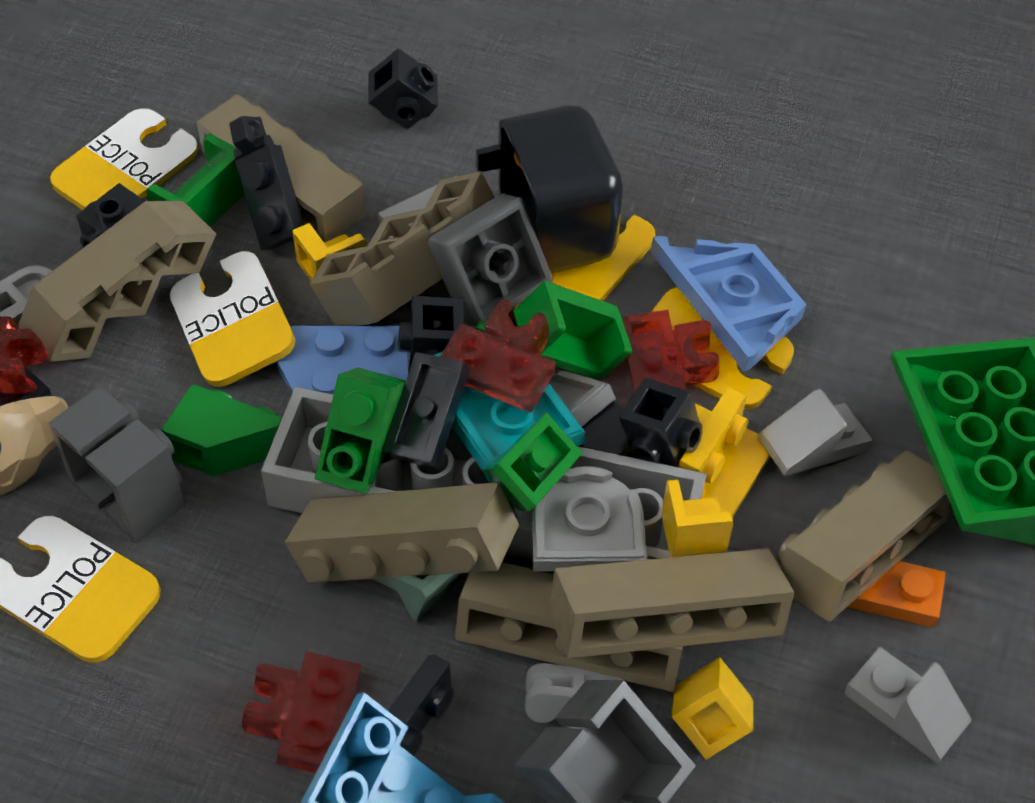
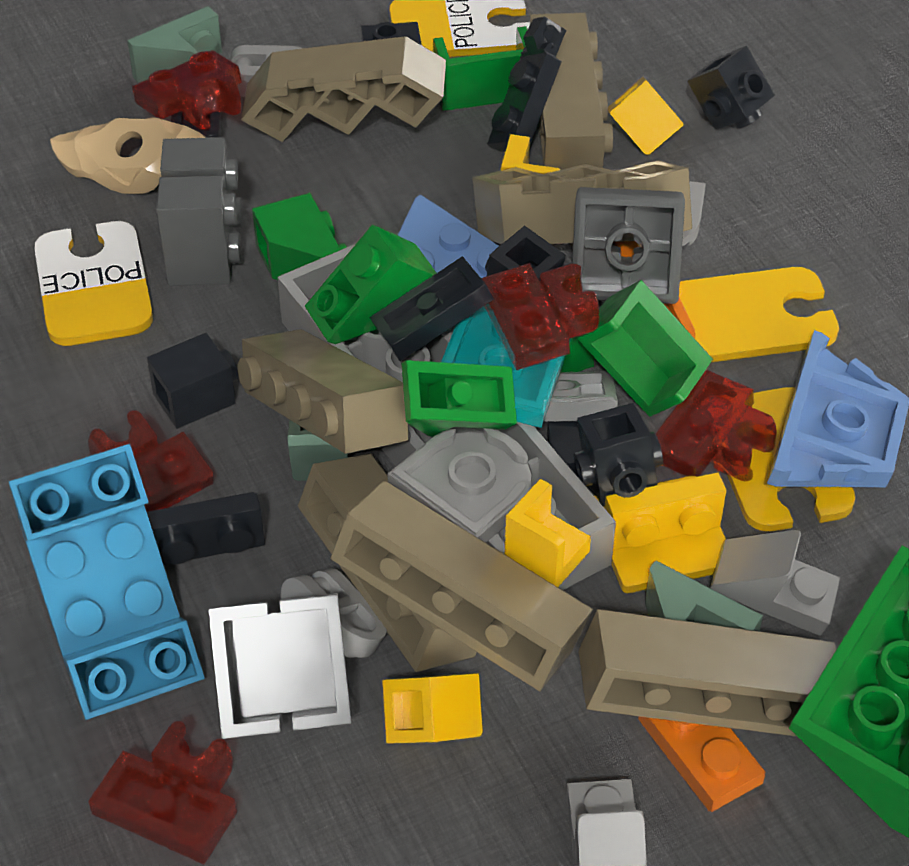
camera: 45 degrees right, 5 degrees down
(237, 329) = (403, 185): piece -> none
(262, 605) = (192, 379): none -> black brick
(359, 148) = (645, 116): none -> yellow panel
(565, 181) = (752, 229): black piece -> none
(791, 501) = (684, 599): none -> sand green slope

